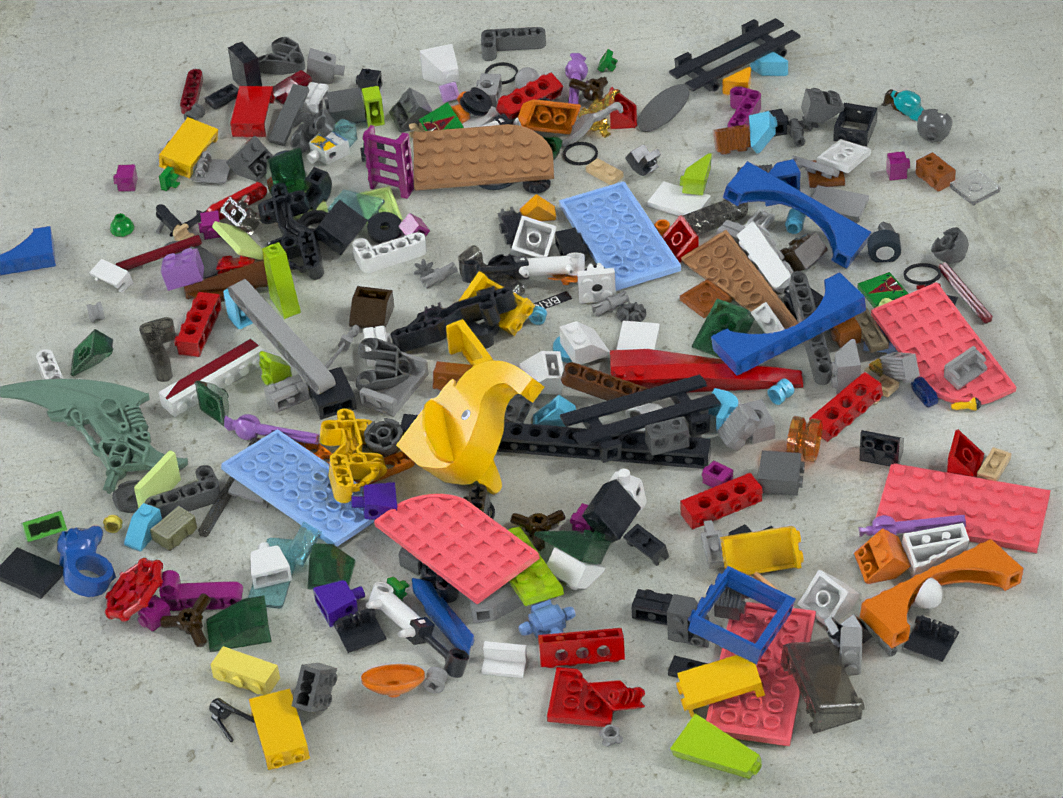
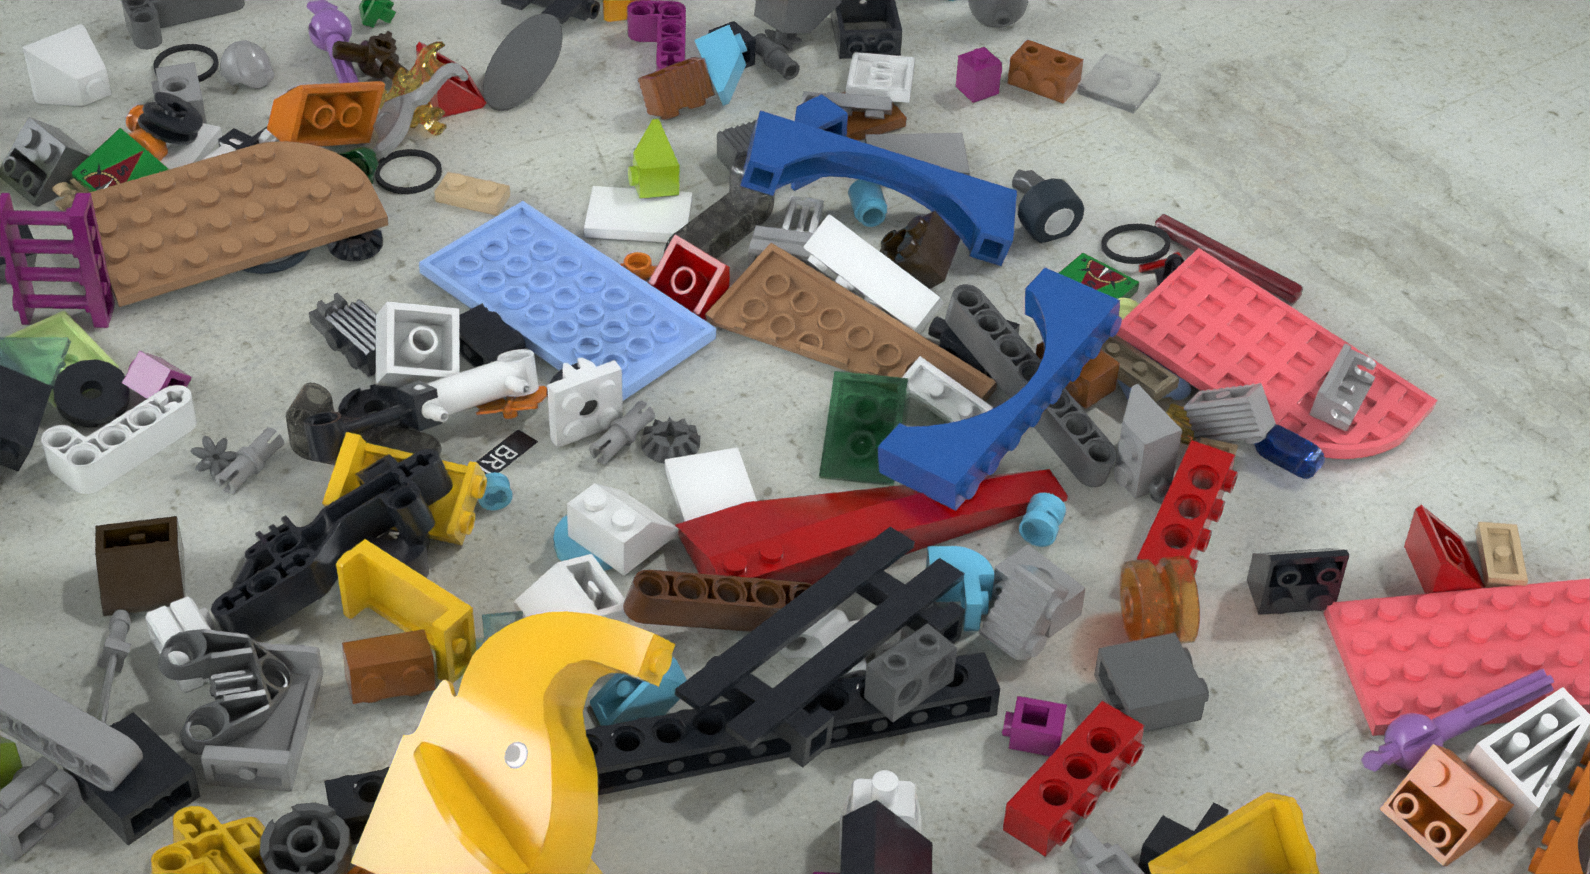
camera: 30 degrees left, 0 degrees up
(448, 91) = (103, 113): lavender tile -> none
(539, 209) = (385, 284): light orange slope -> none
(544, 87) = (252, 99): red brick -> none
(642, 160) = (536, 160): brick -> none
(703, 296) = (790, 379): dark orange tile -> none
(951, 247) = (1161, 183): dark grey cylinder -> none
(974, 404) = (1383, 453): yellow piece -> none

